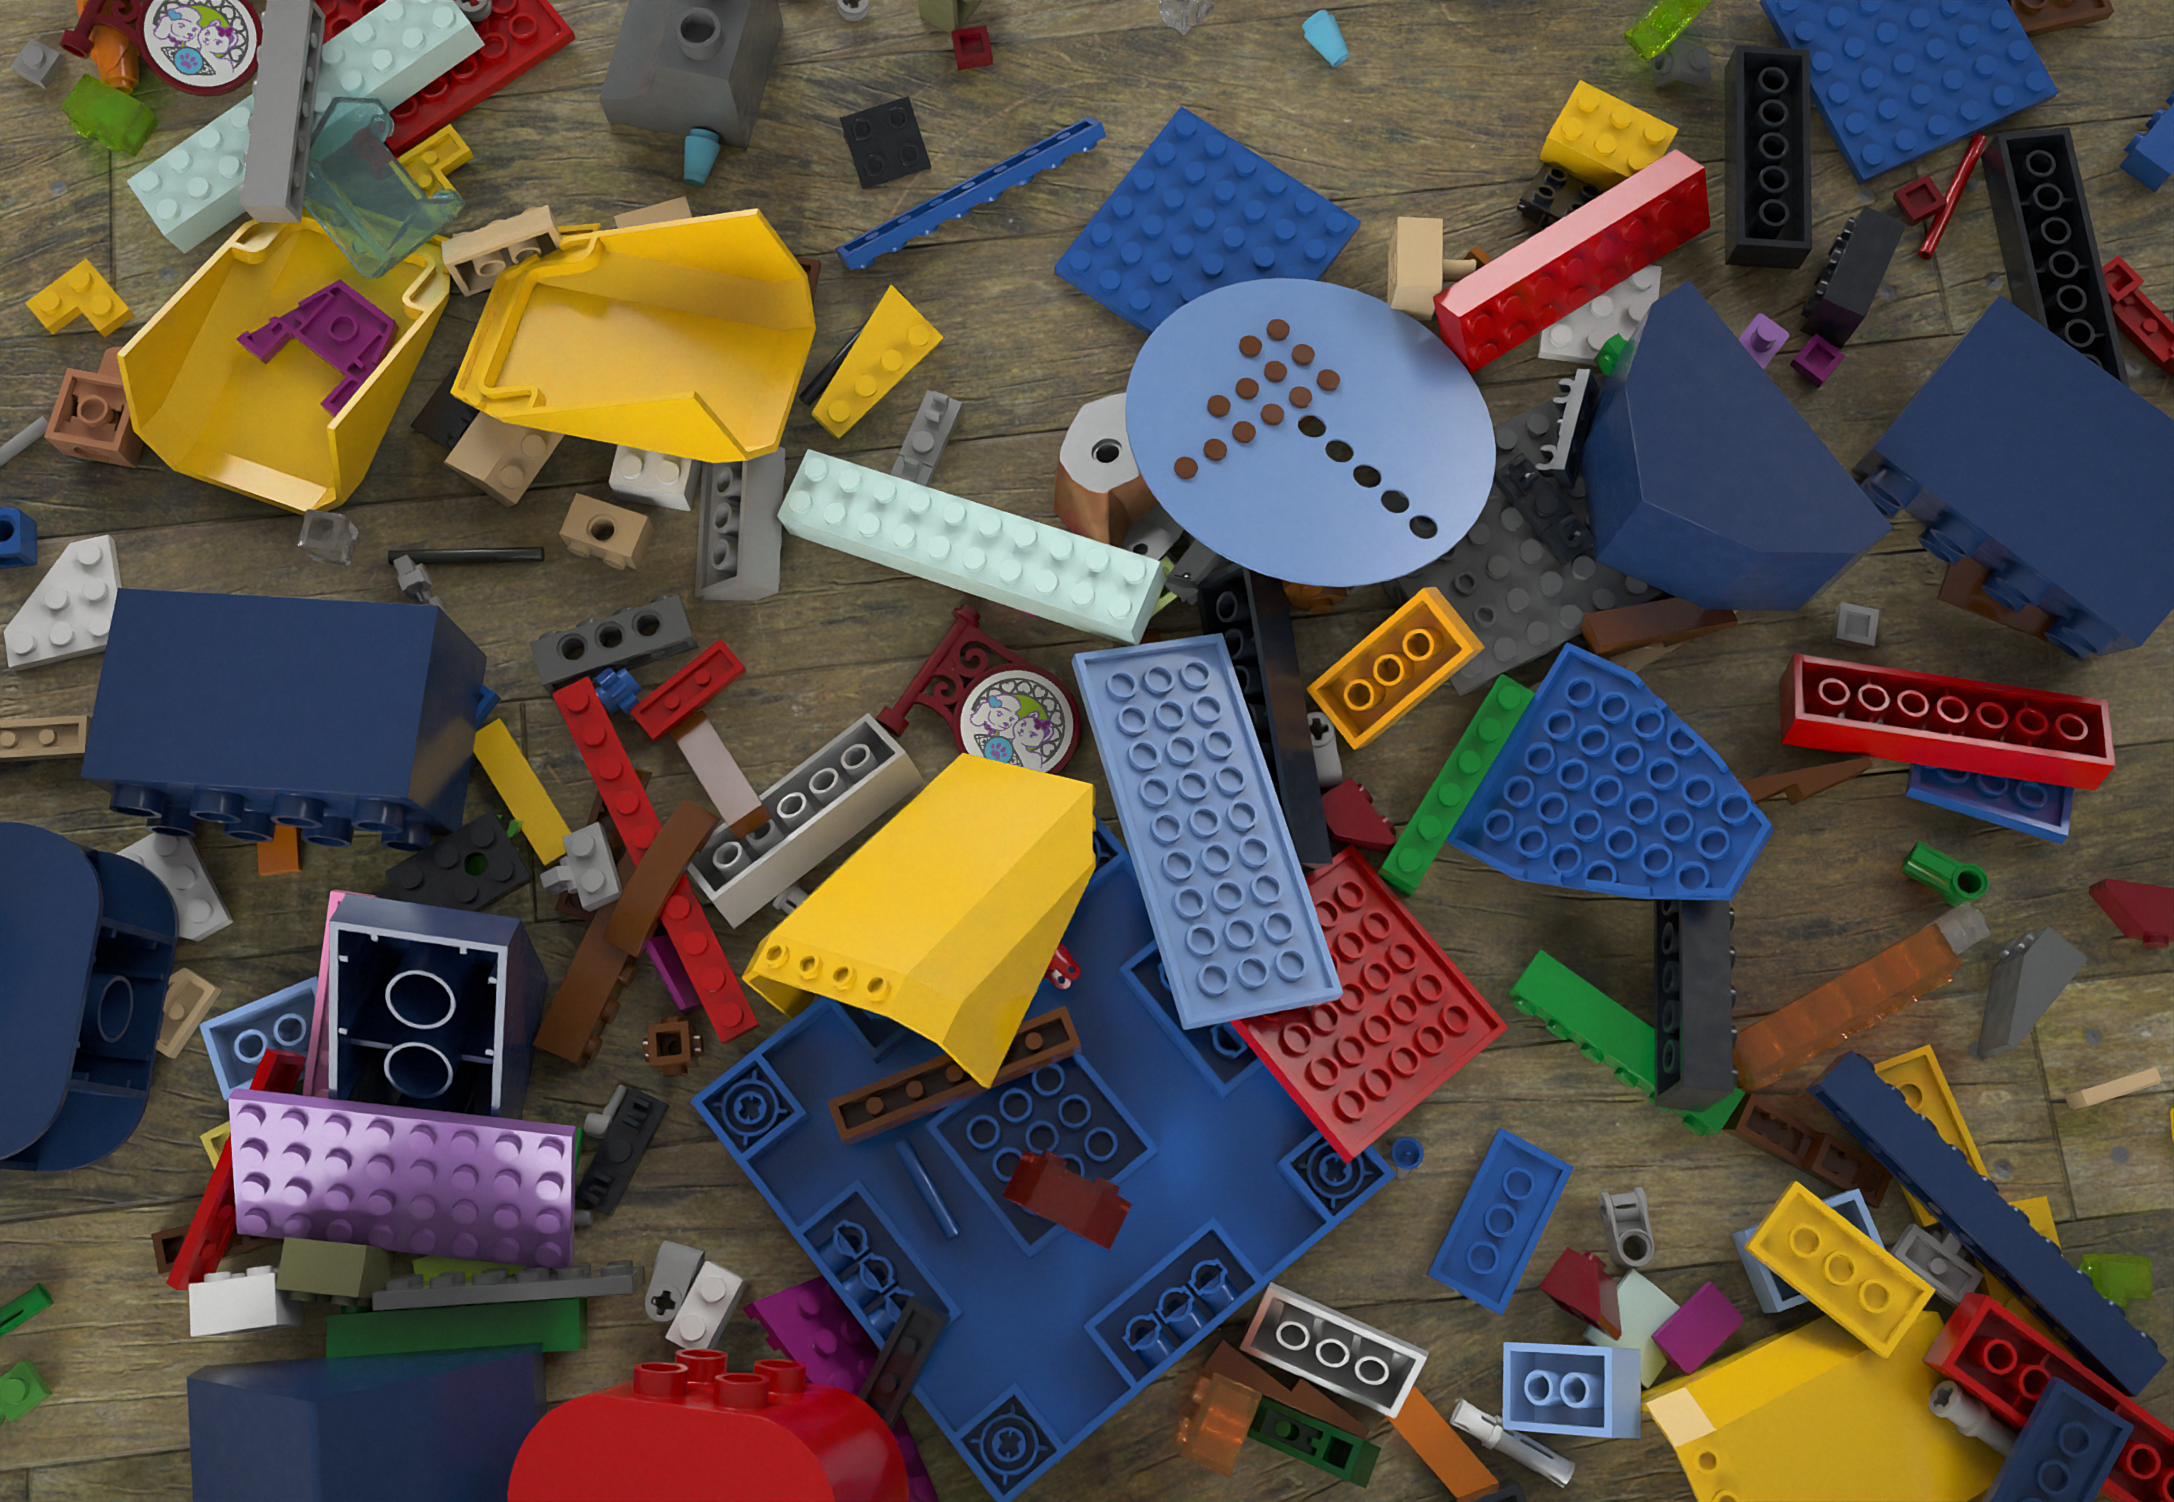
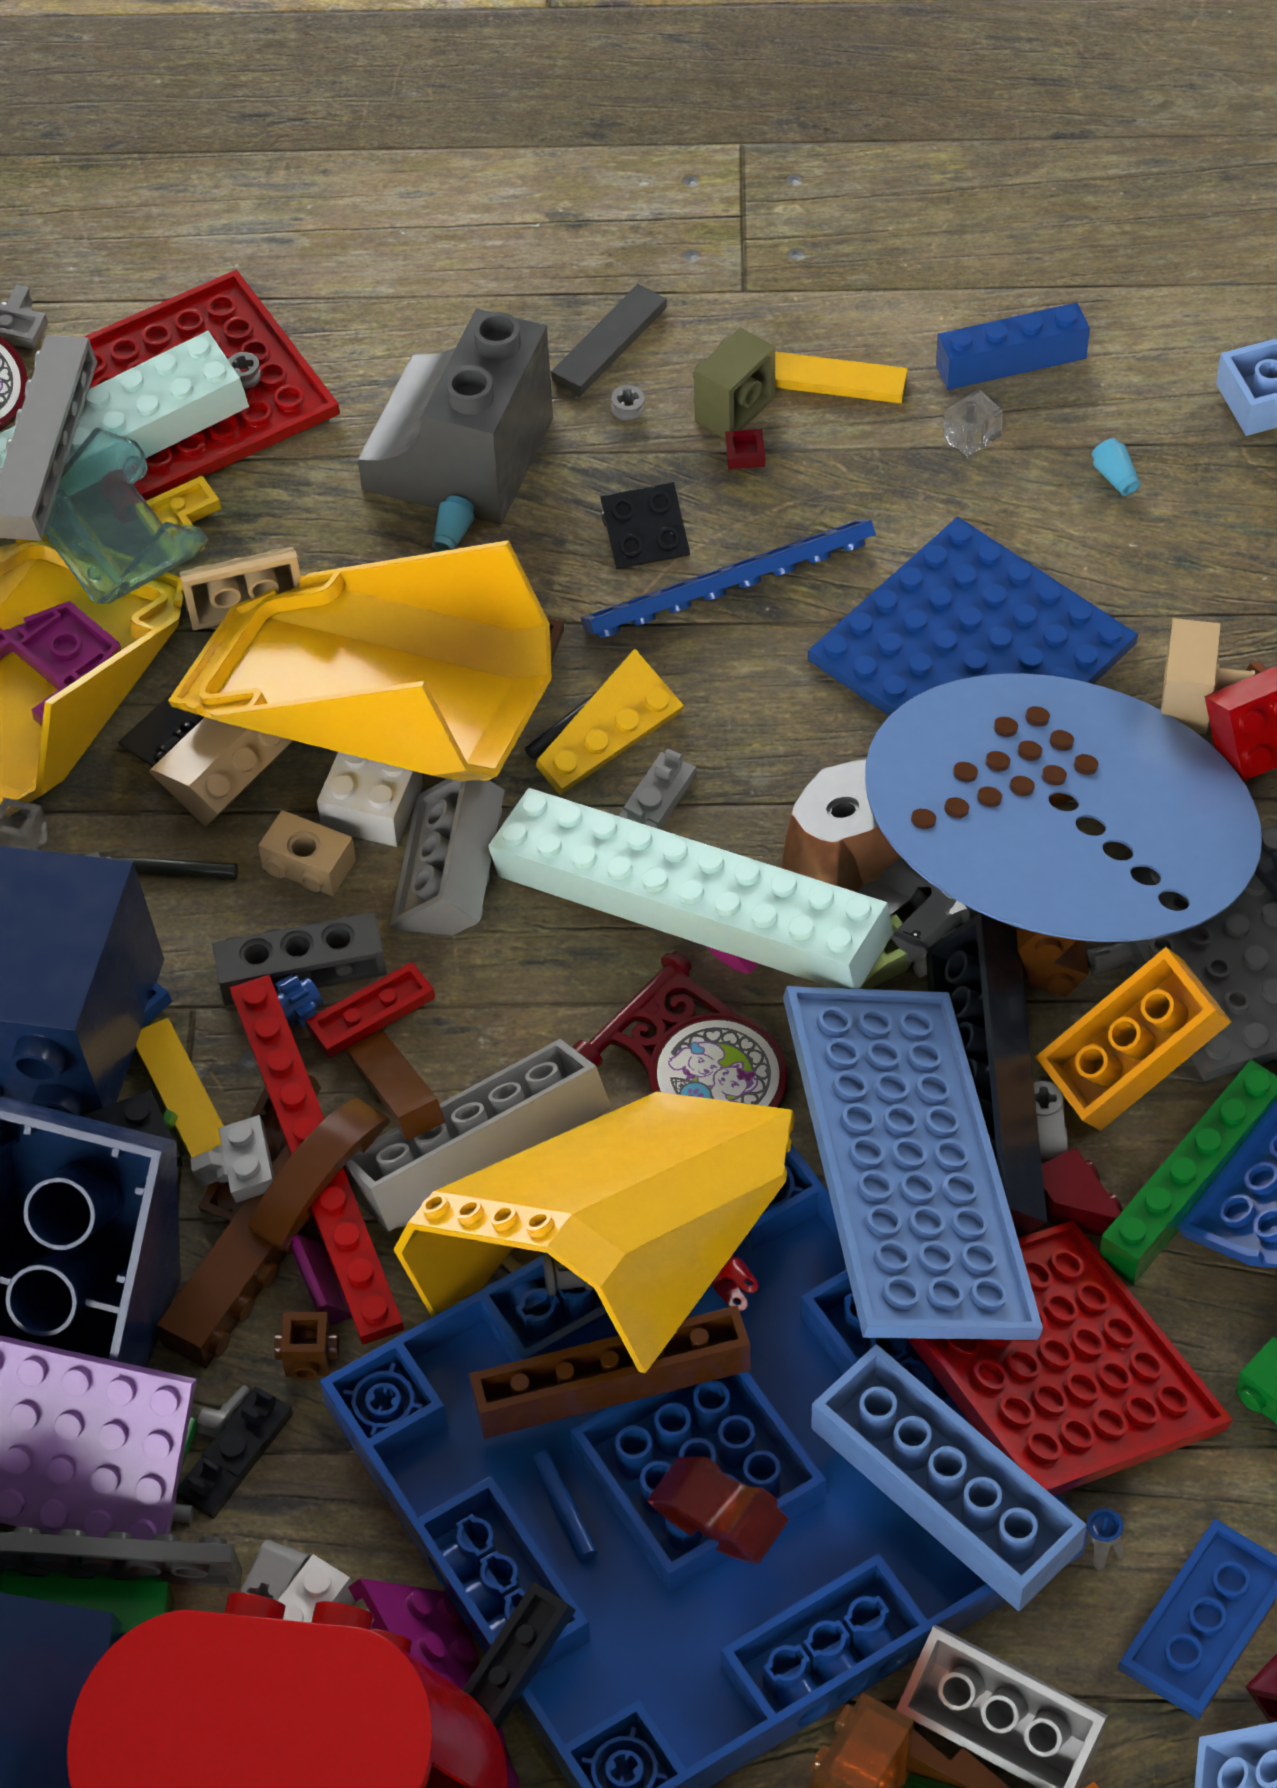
camera: 10 degrees right, 20 degrees down
(1270, 1148) = (948, 1477): none -> medium blue brick

